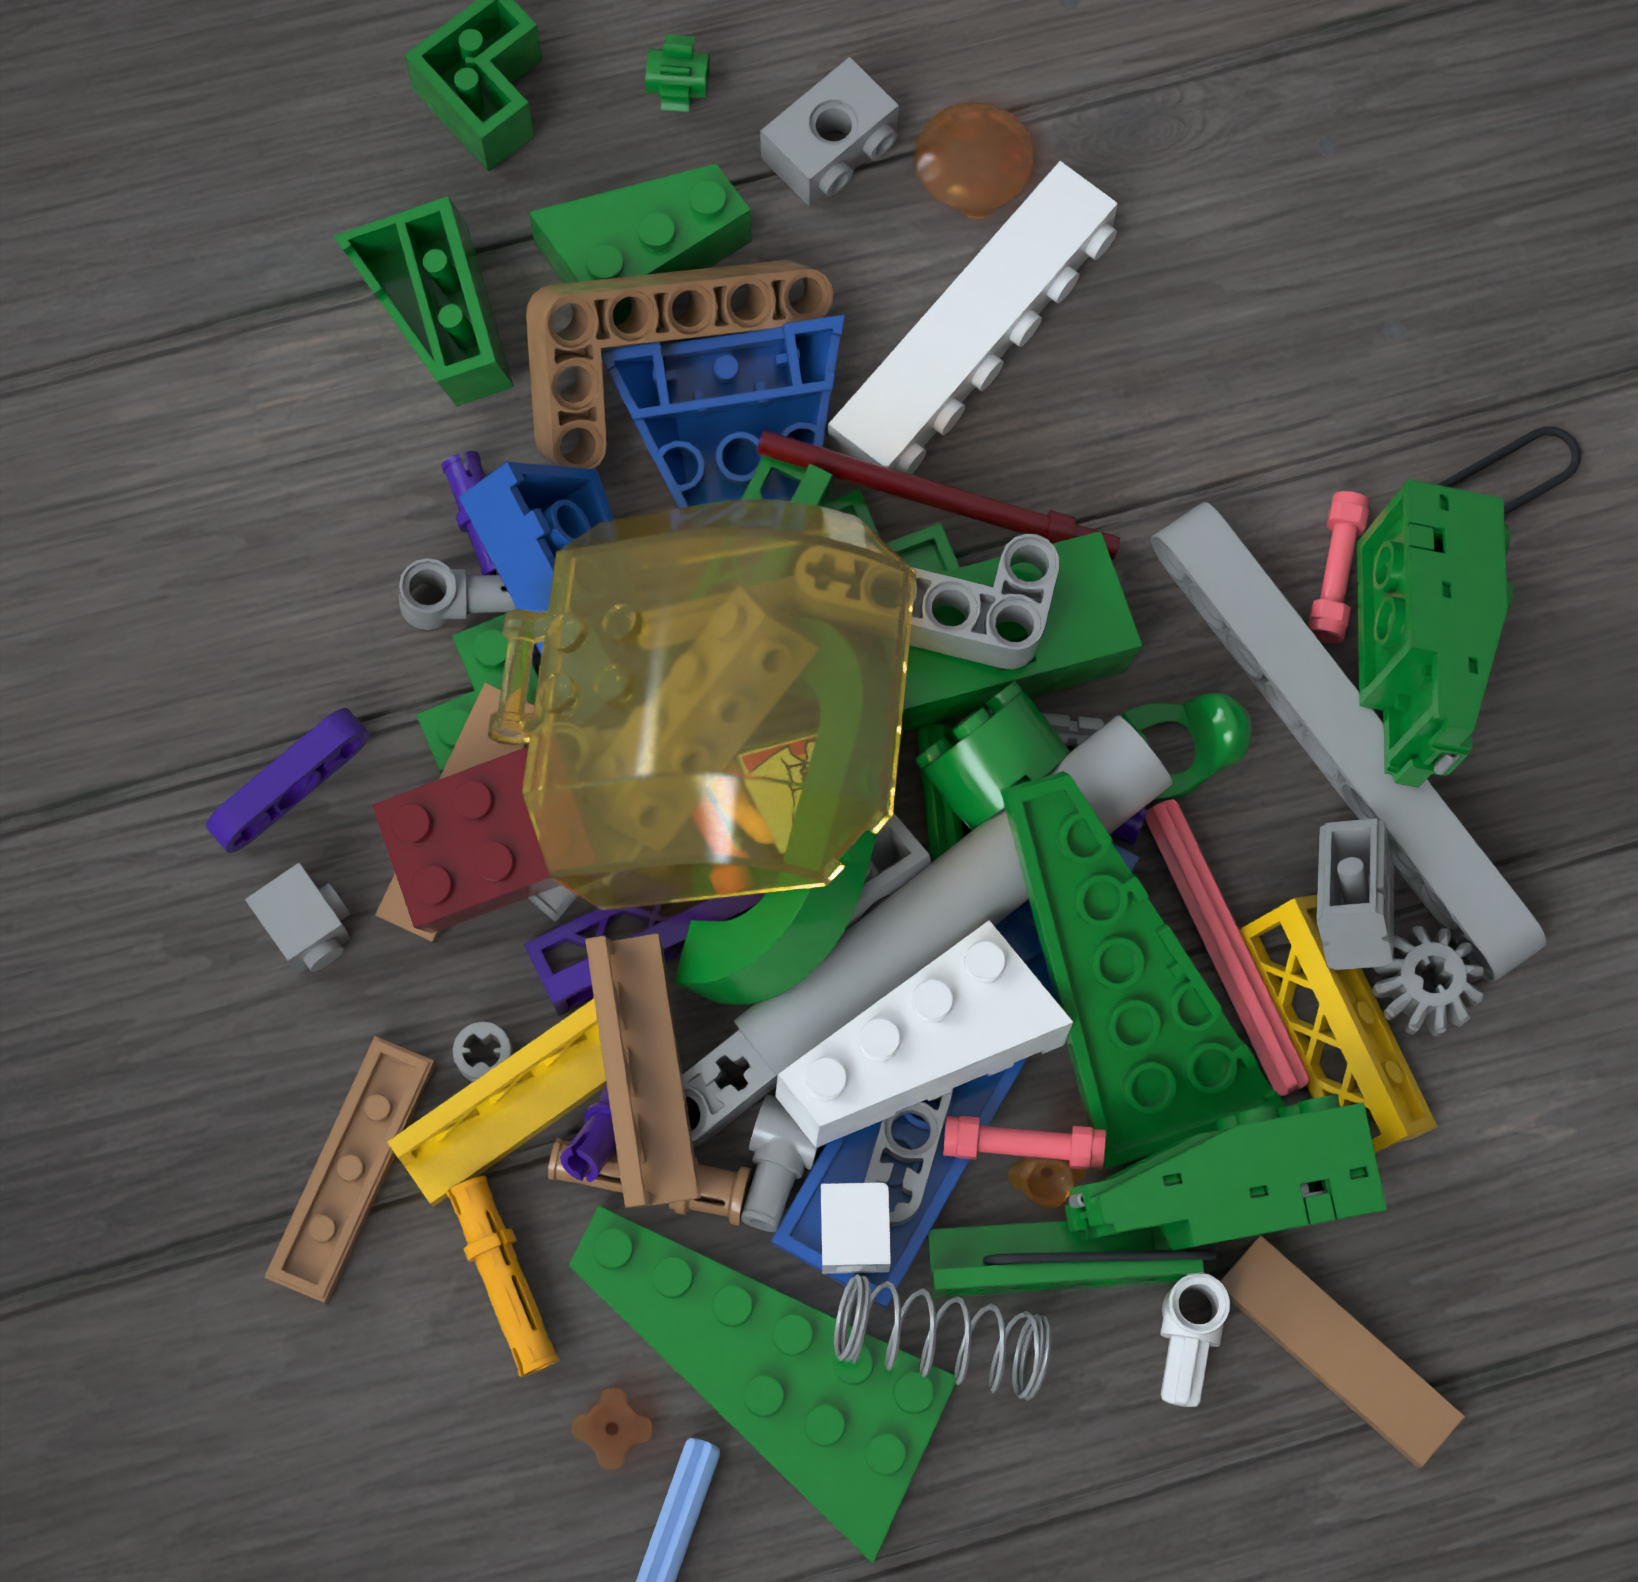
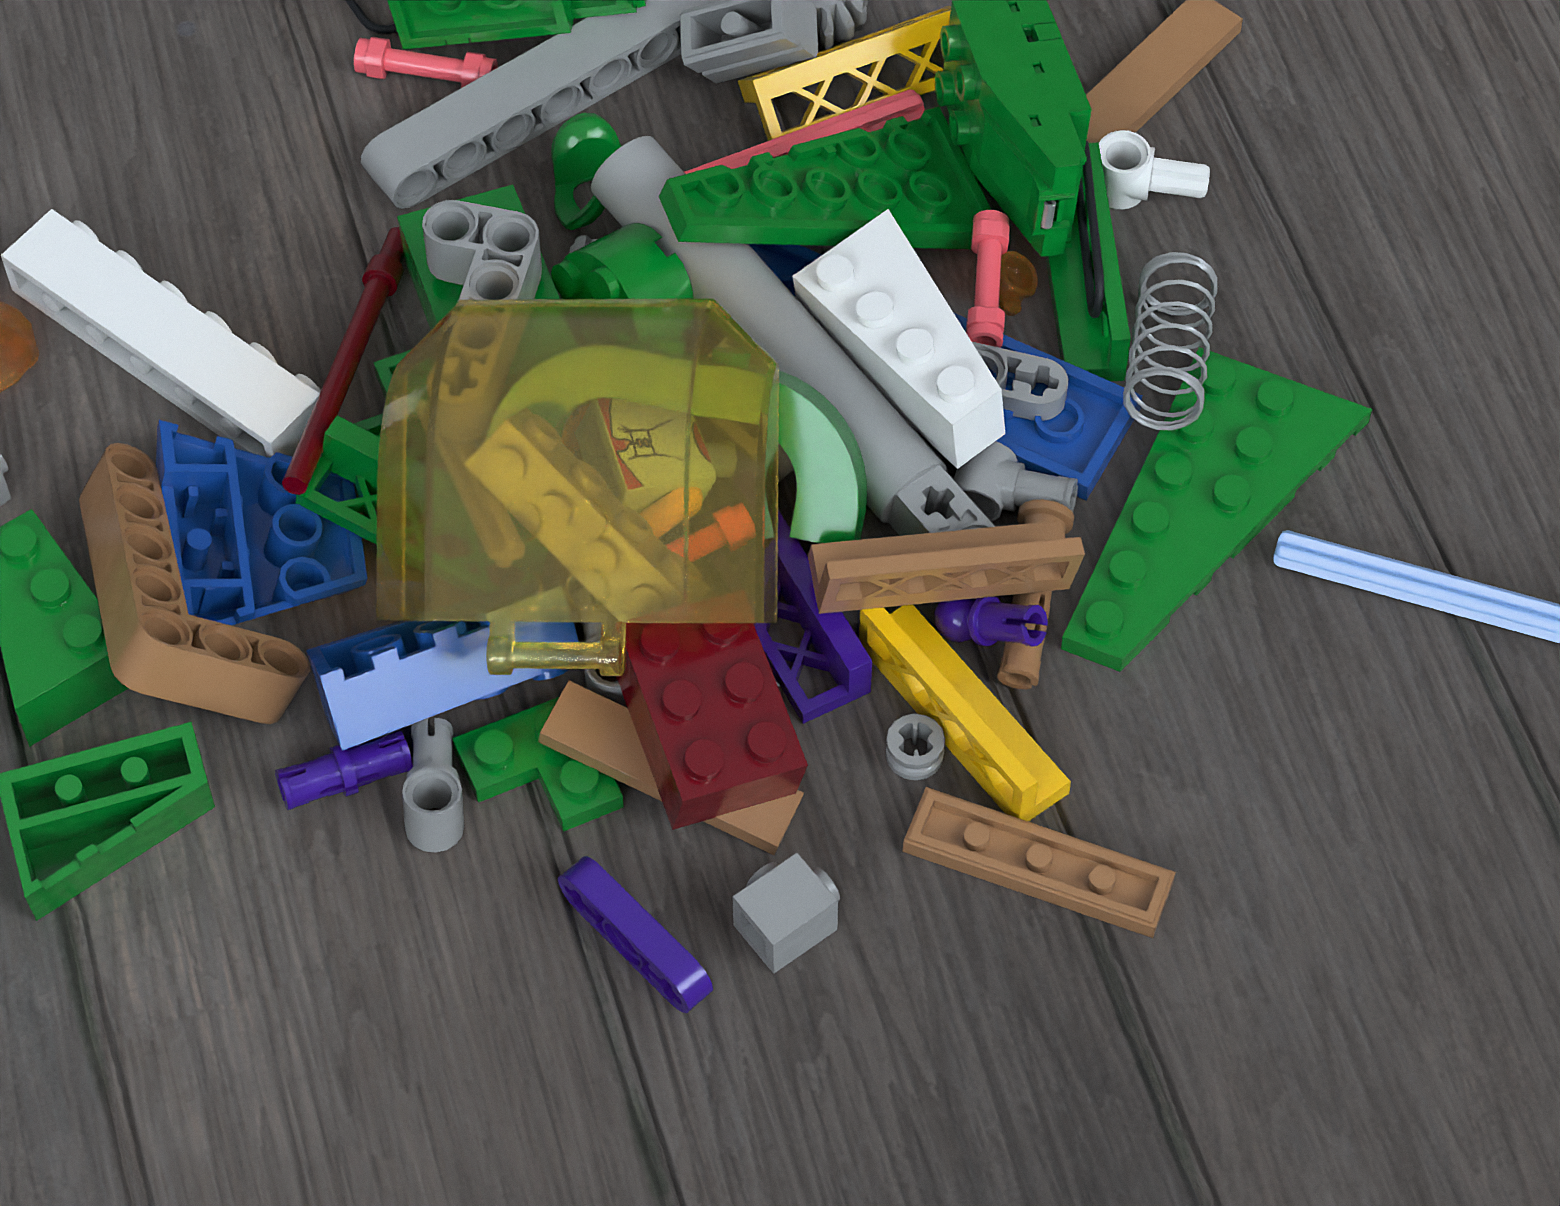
camera: 90 degrees left, 15 degrees down
(498, 1265) = (1116, 723): light orange pin -> none
(592, 1428) = (1275, 606): clear orange plate -> none
(855, 1228) = (1079, 403): white panel -> none

